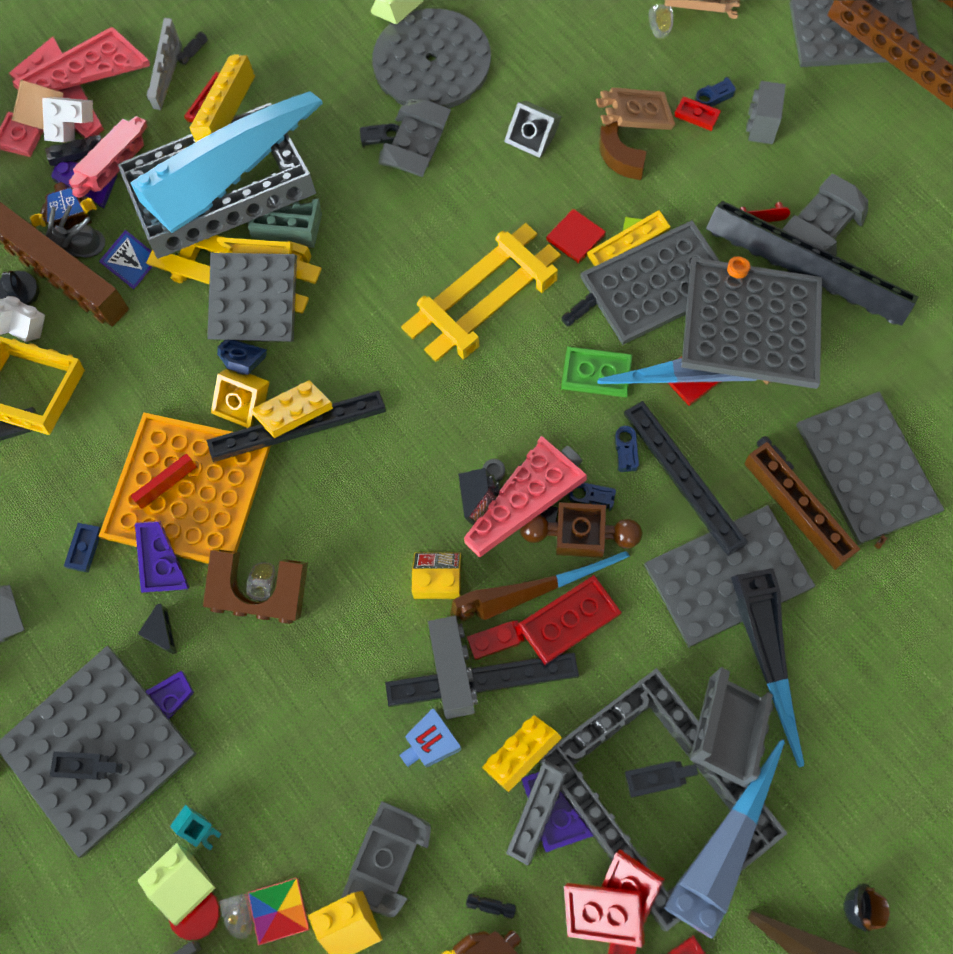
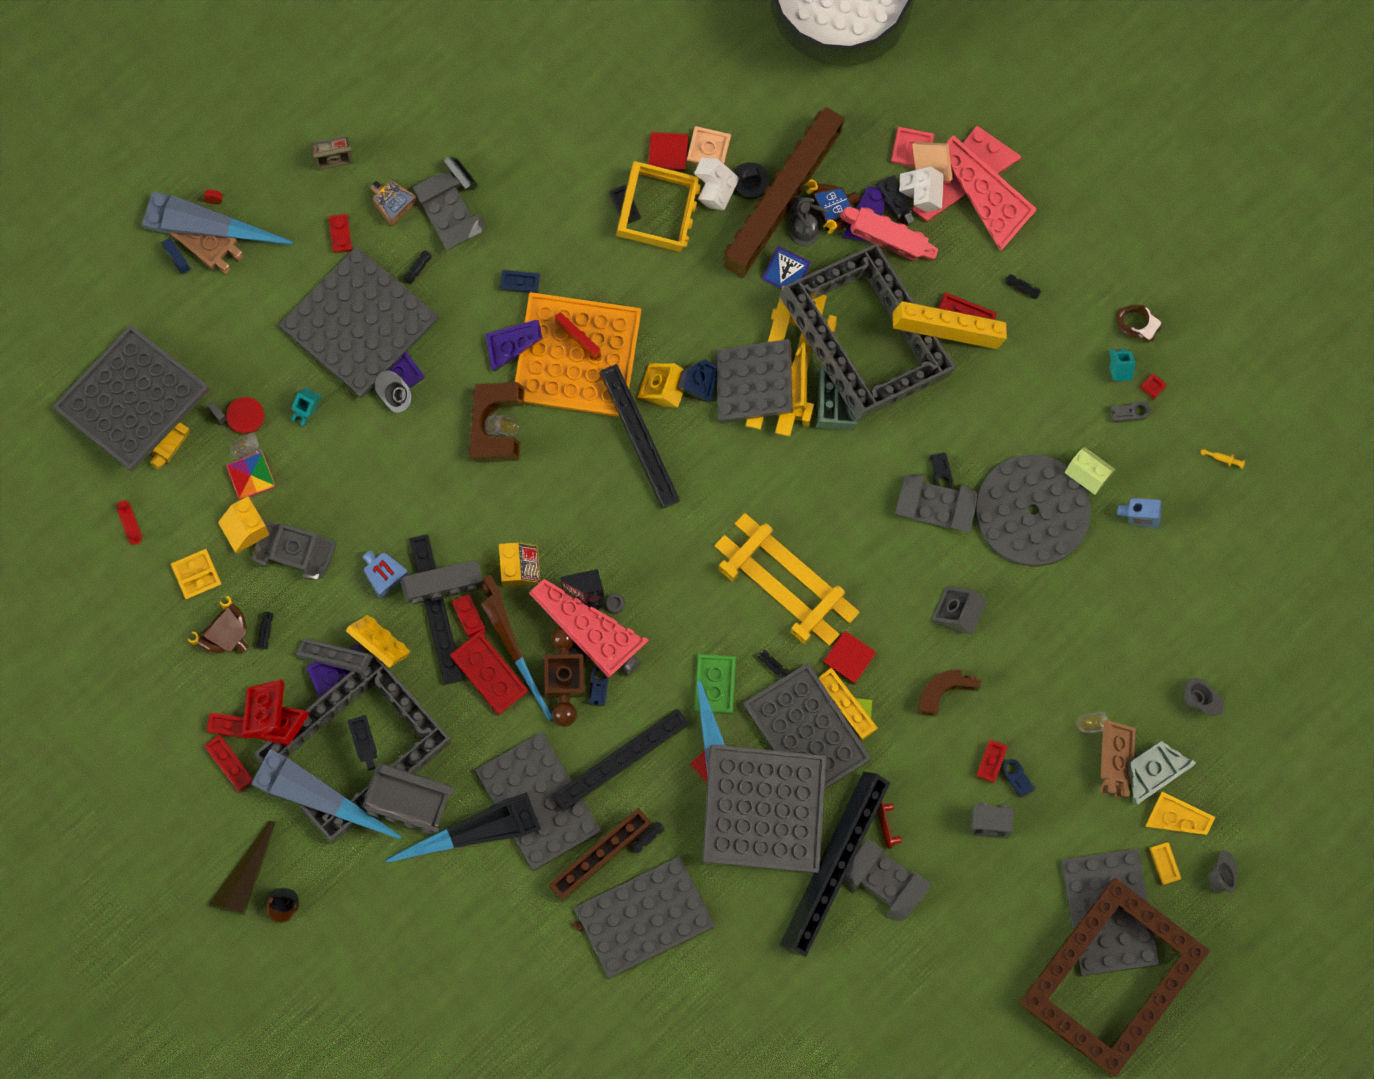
camera: 75 degrees right, 5 degrees up
(38, 670) = (417, 267): none -> black axle
(82, 766) = (344, 315): black hinge -> none
(158, 629) = (455, 353): black slope -> none
(164, 65) = (998, 265): light grey wing -> none
(176, 884) = (264, 399): yellowish green slope -> none
(195, 709) = (393, 391): none -> dark grey piece
(201, 173) = (853, 316): medium azure wedge -> none
(292, 408) = (653, 429): yellow plate -> none
(627, 451) = (641, 713): dark blue piece -> none
(636, 108) = (986, 703): medium nougat tile -> none
(738, 267) = (817, 795): orange tile -> none

